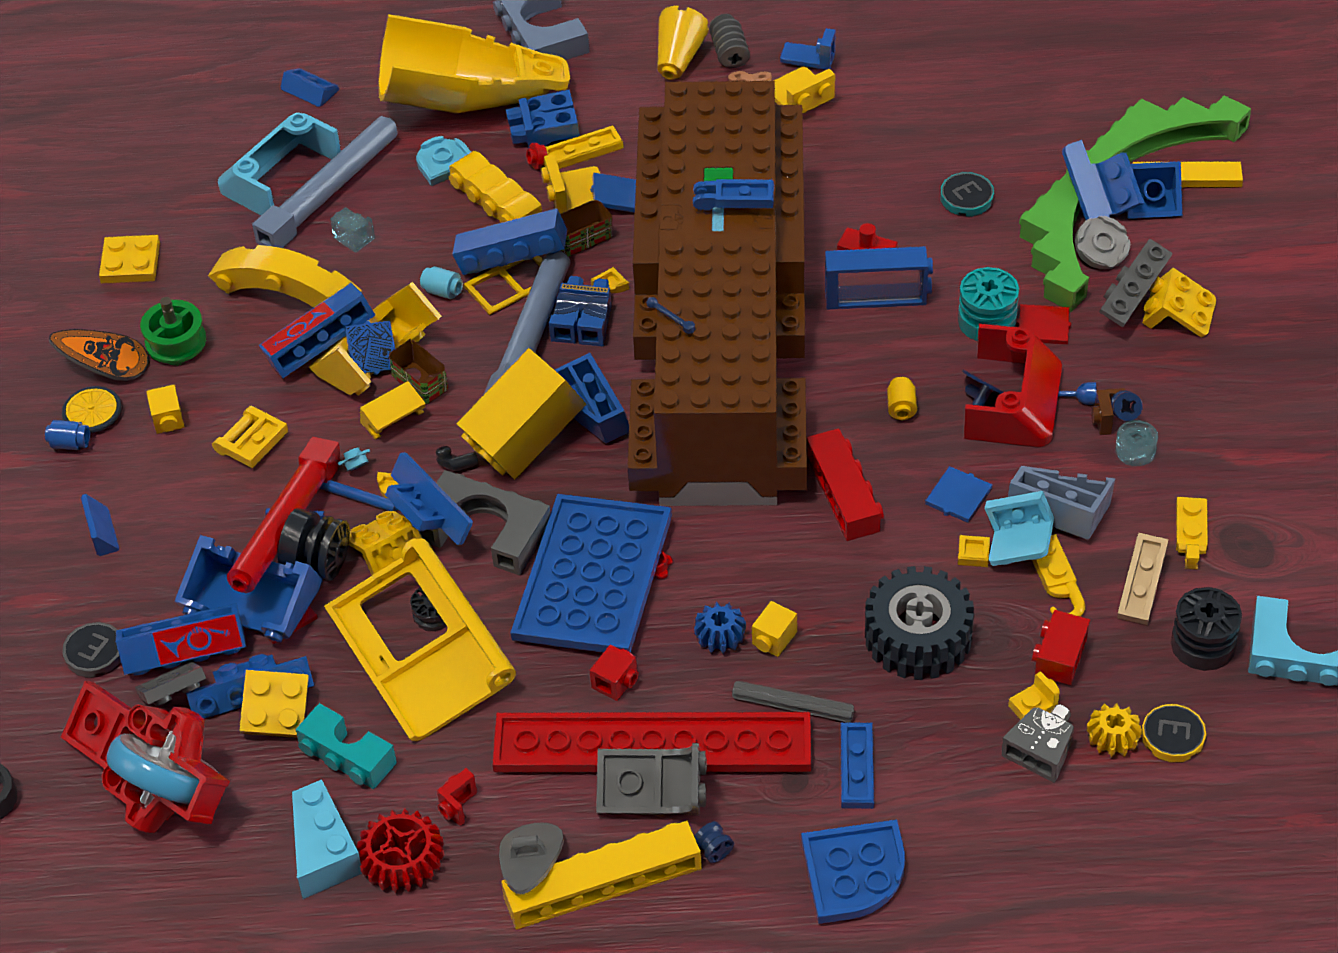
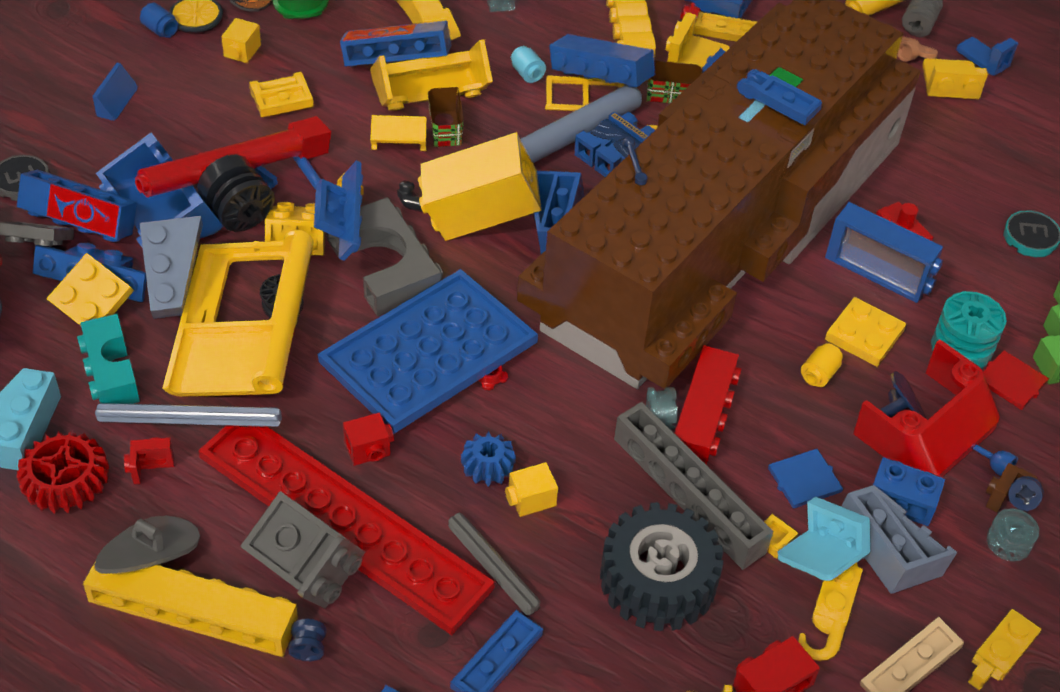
camera: 30 degrees right, 0 degrees up
(325, 635) = (169, 262): none -> sand blue wedge
(354, 459) = (336, 152): medium azure plate -> none
(370, 345) = (425, 74): blue piece -> none
(456, 744) = (188, 414): none -> sand blue axle
(815, 507) = (663, 405): none -> clear light blue wheel
(885, 547) = (693, 484): none -> dark grey brick
(908, 351) = (865, 331): none -> yellow plate
(1041, 451) = (910, 488): none -> blue brick

